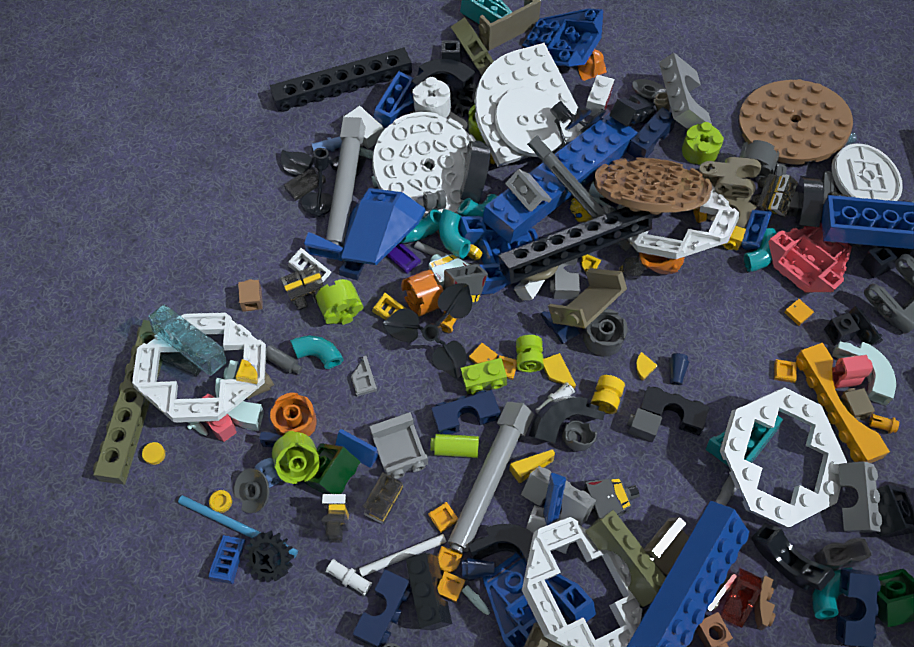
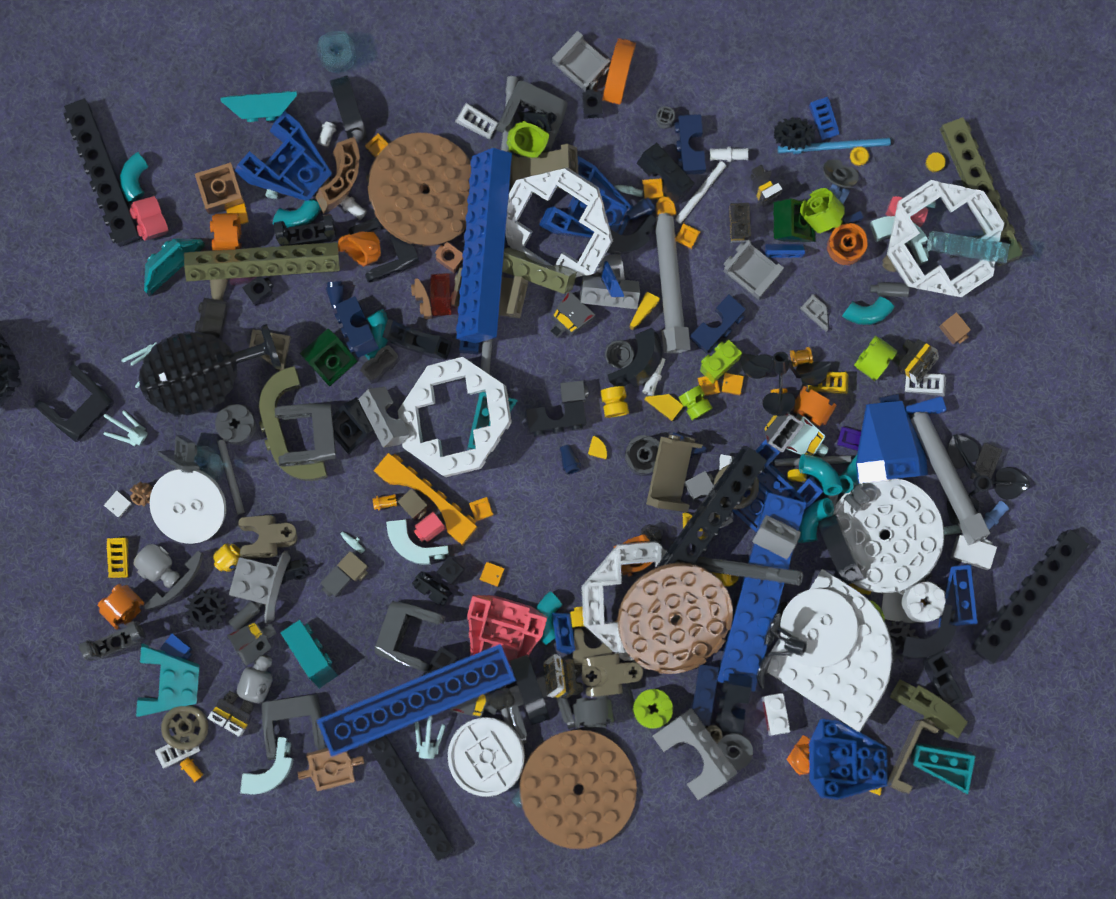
camera: 150 degrees right, 20 degrees up
(247, 373) = (903, 249): yellow tile -> none
(404, 344) = (801, 356): none -> light orange bush
(455, 445) = (710, 293): lime brick -> none

